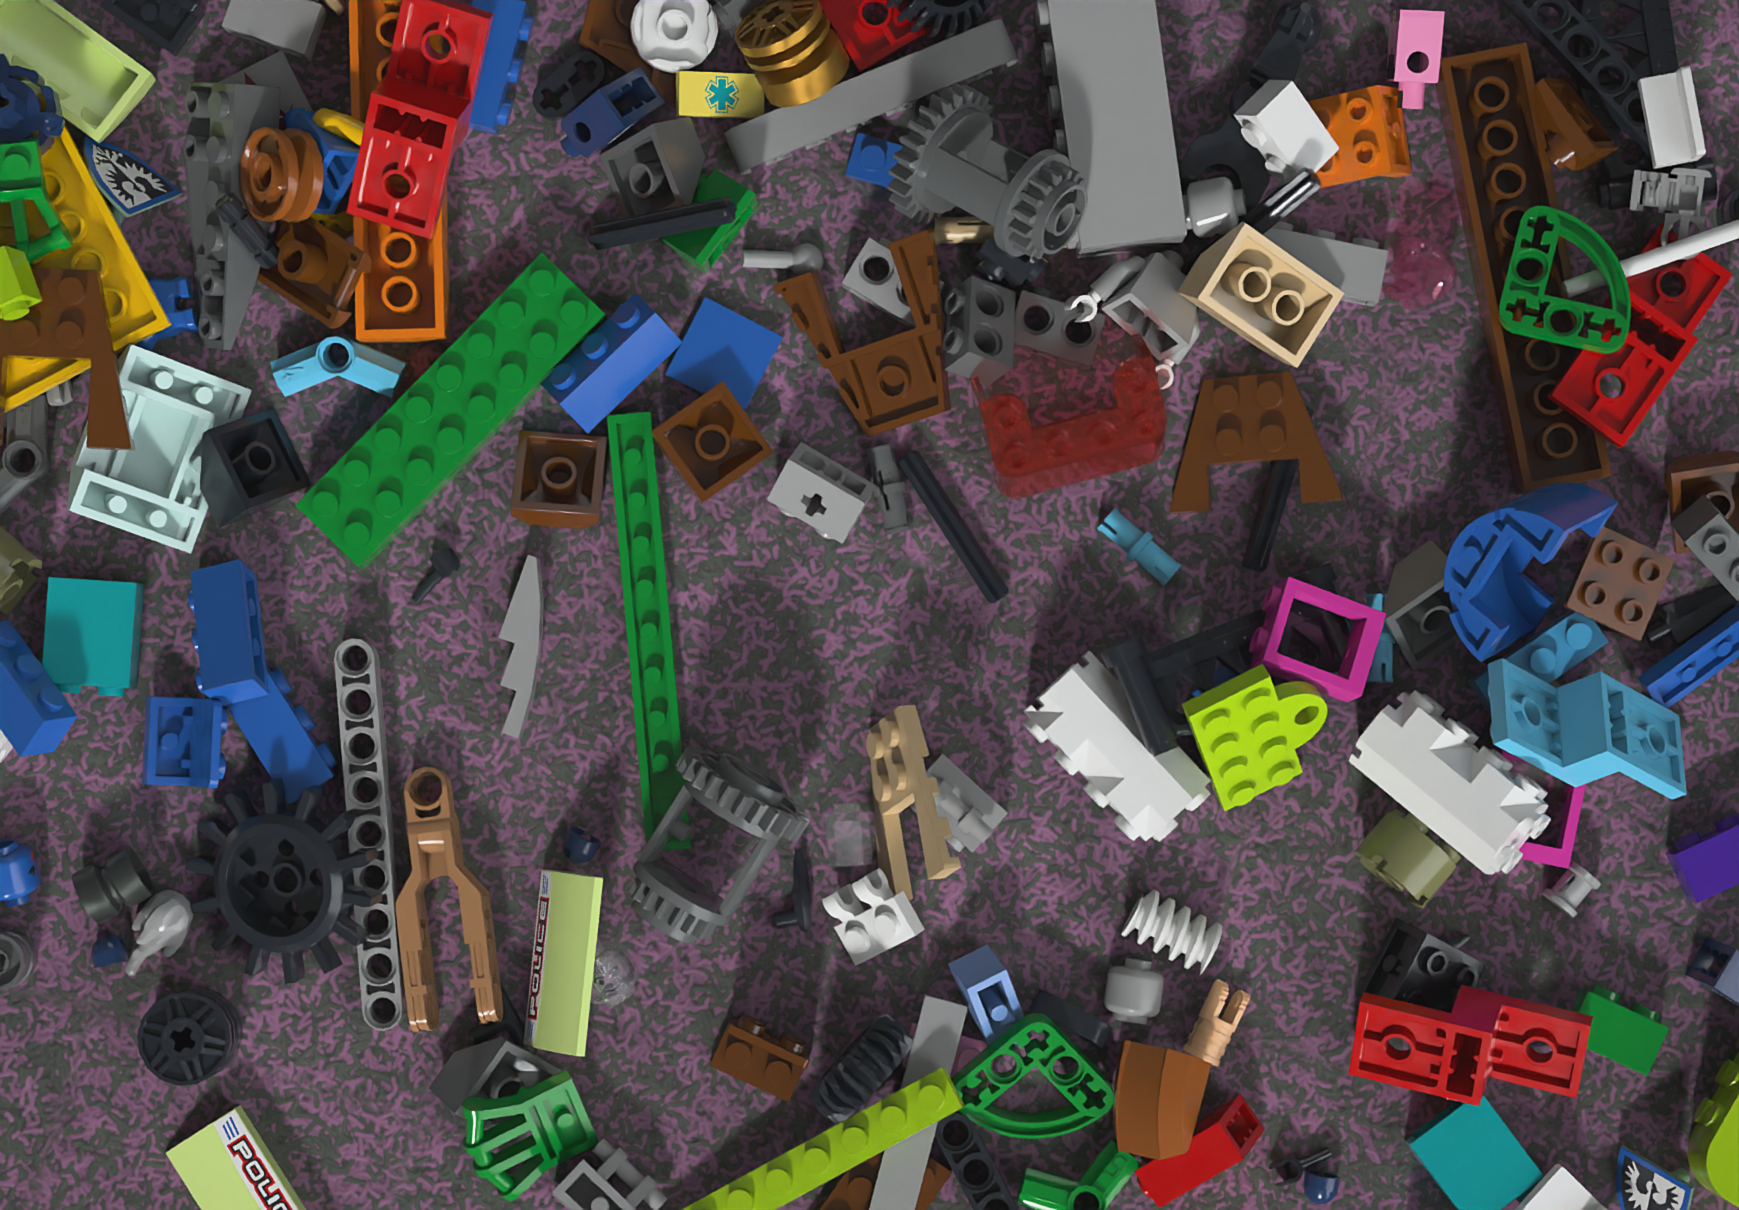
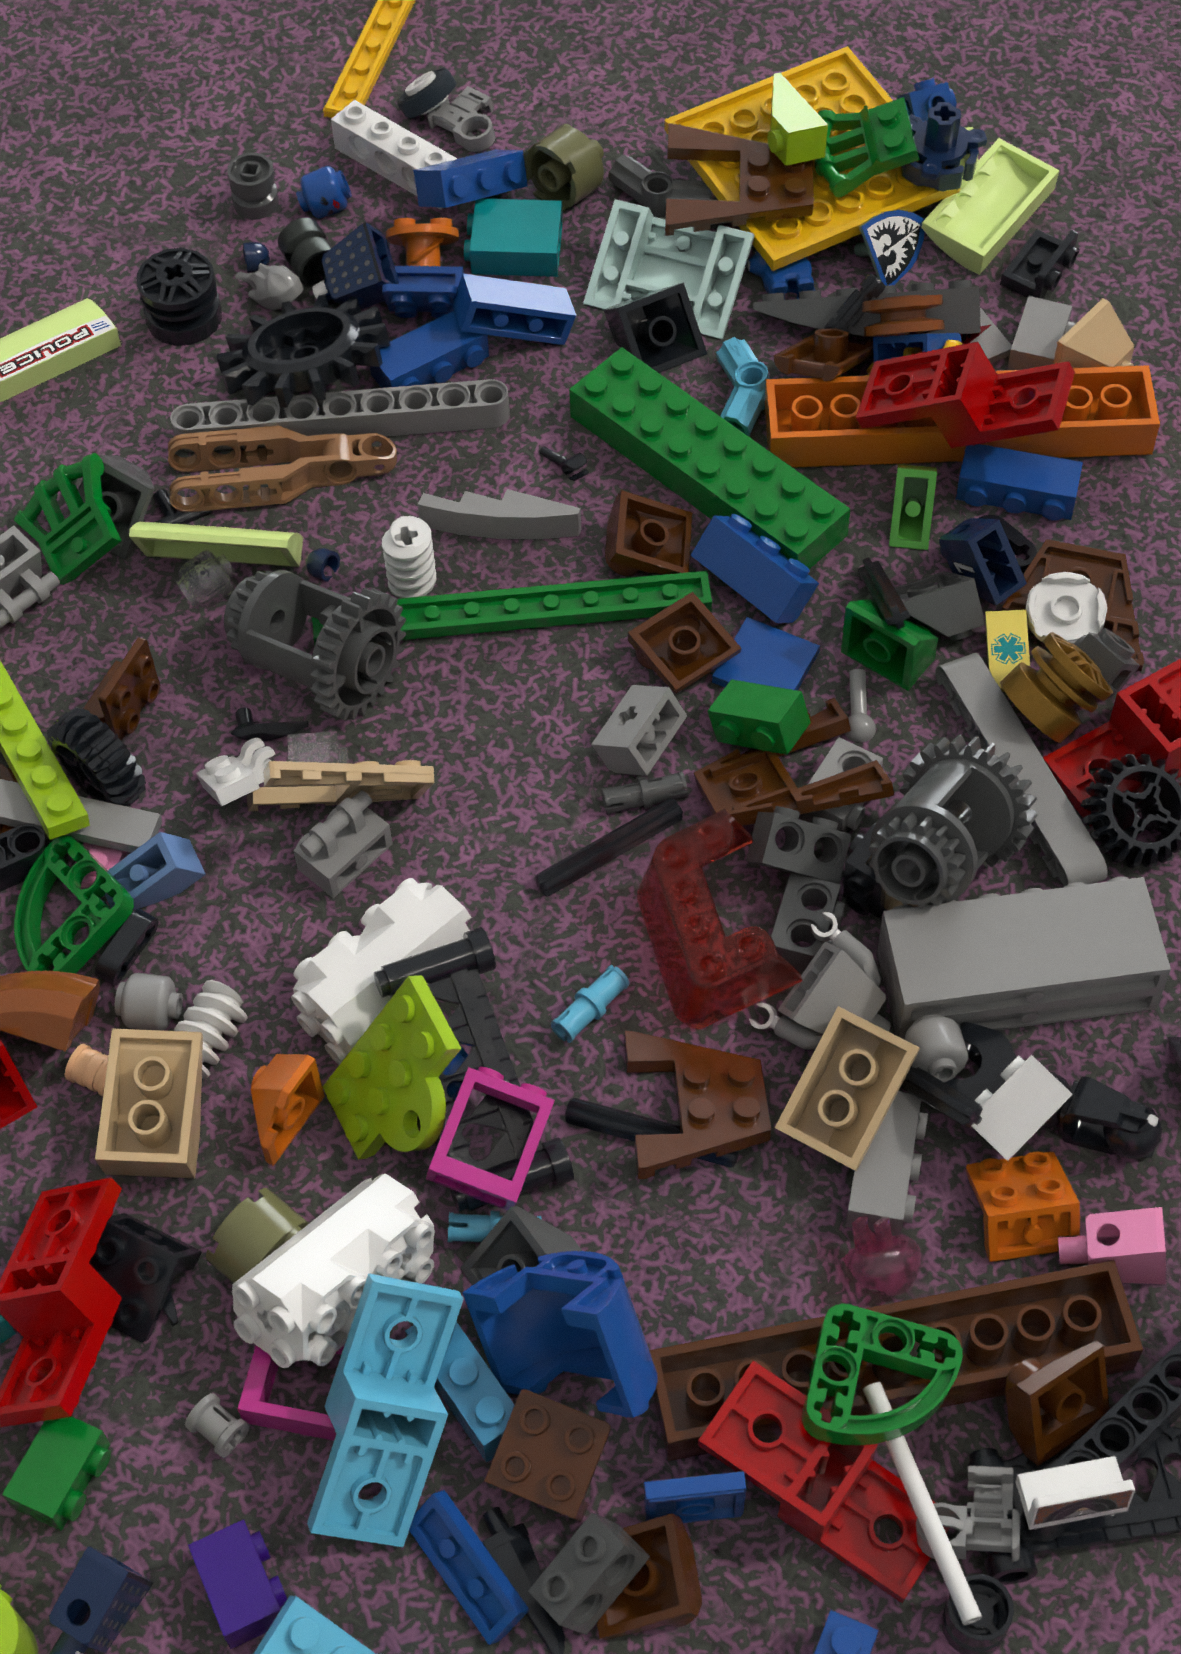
camera: 90 degrees right, 30 degrees down
(104, 746) = (422, 240): none -> orange plate
(157, 820) = (357, 268): none -> dark blue torso
(516, 182) = (913, 506): none -> bright green slope
(583, 734) = (409, 557): none -> white piece
(812, 366) = (759, 716): none -> green brick
(1250, 849) = (284, 1100): none -> orange slope
(1265, 974) = (151, 1104): none -> tan slope
(1655, 455) = (696, 1497): none -> blue tile

